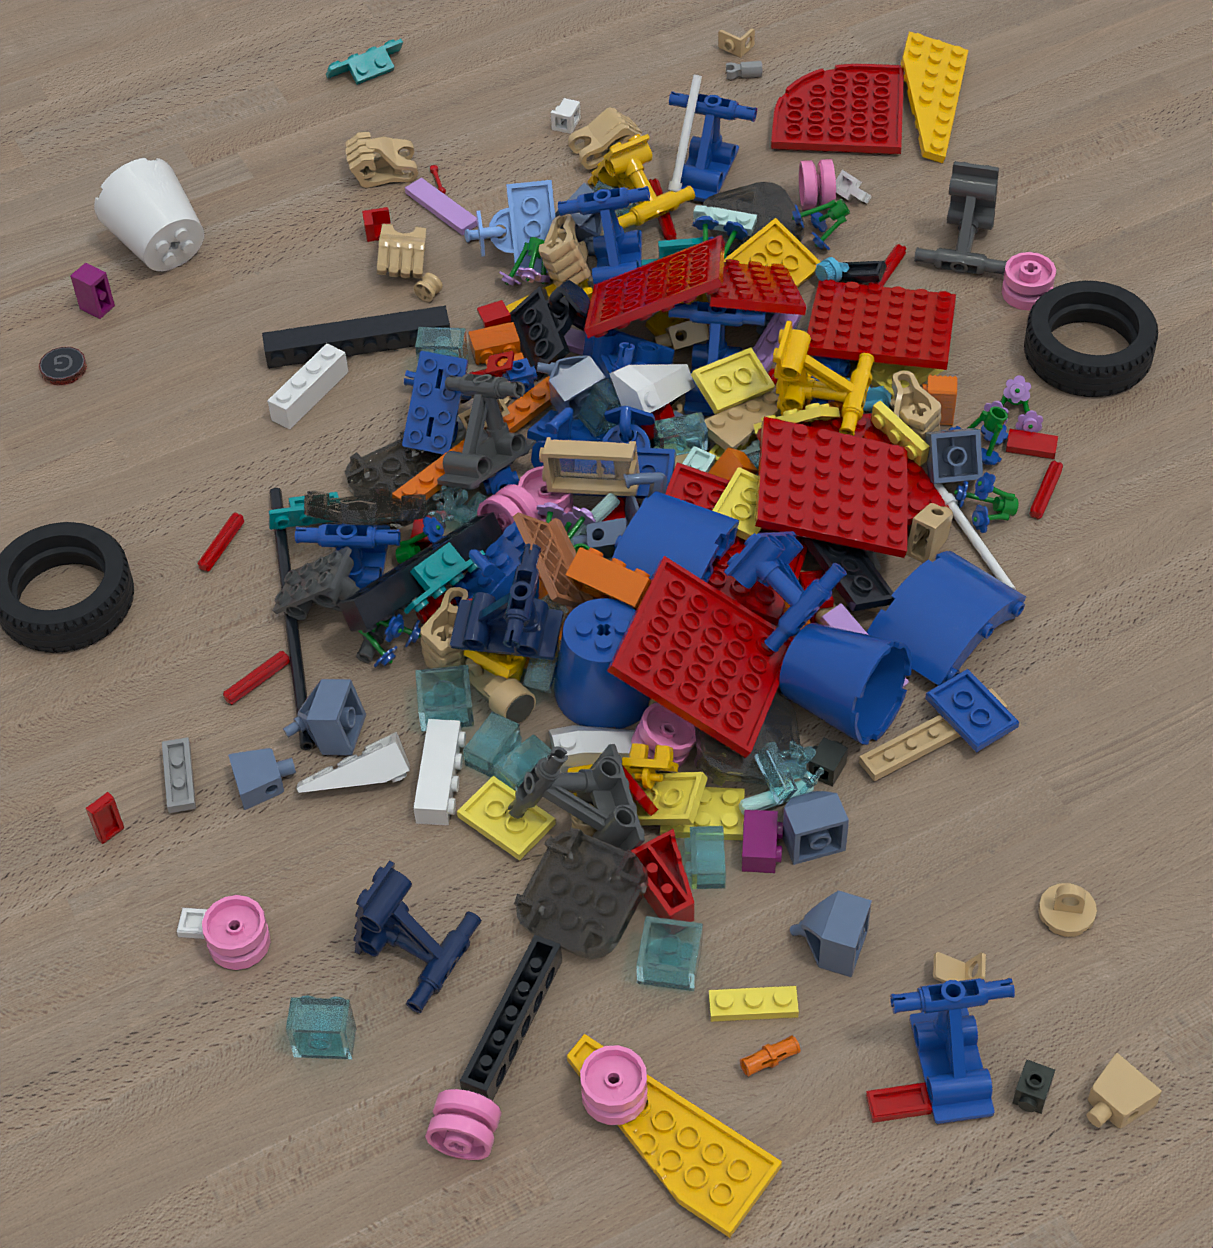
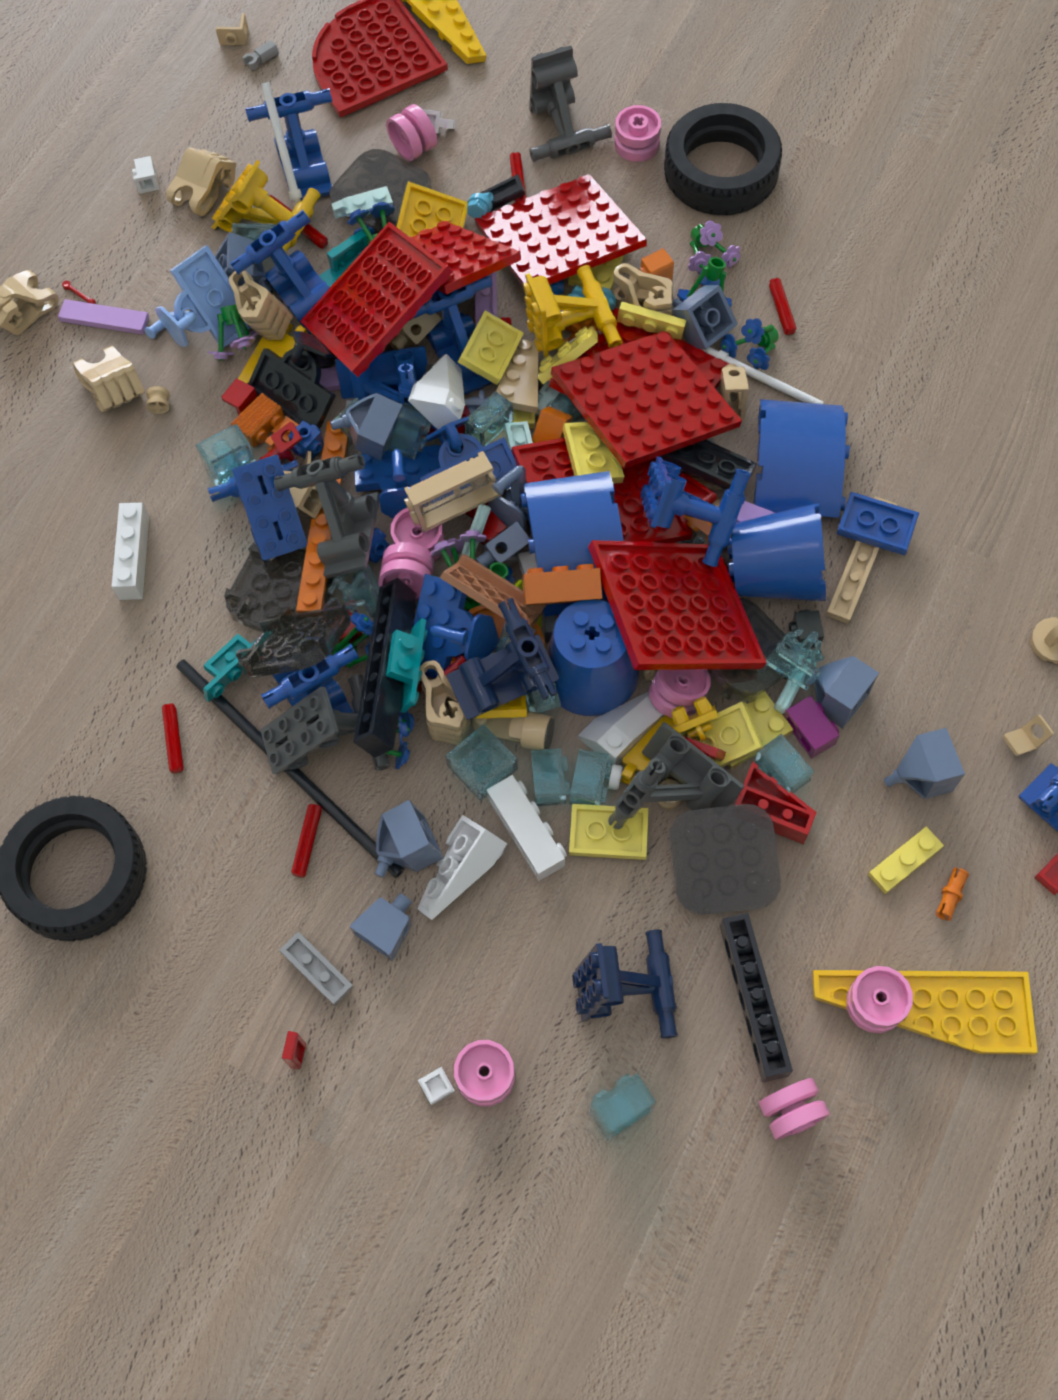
camera: 35 degrees left, 15 degrees up
(351, 336) = (132, 481): black brick -> none
(373, 222) = (60, 365): red panel -> none
(669, 953) = (824, 863): clear light blue brick -> none
(837, 211) = (449, 149): green plant -> none
(1032, 443) = (744, 272): red tile -> none

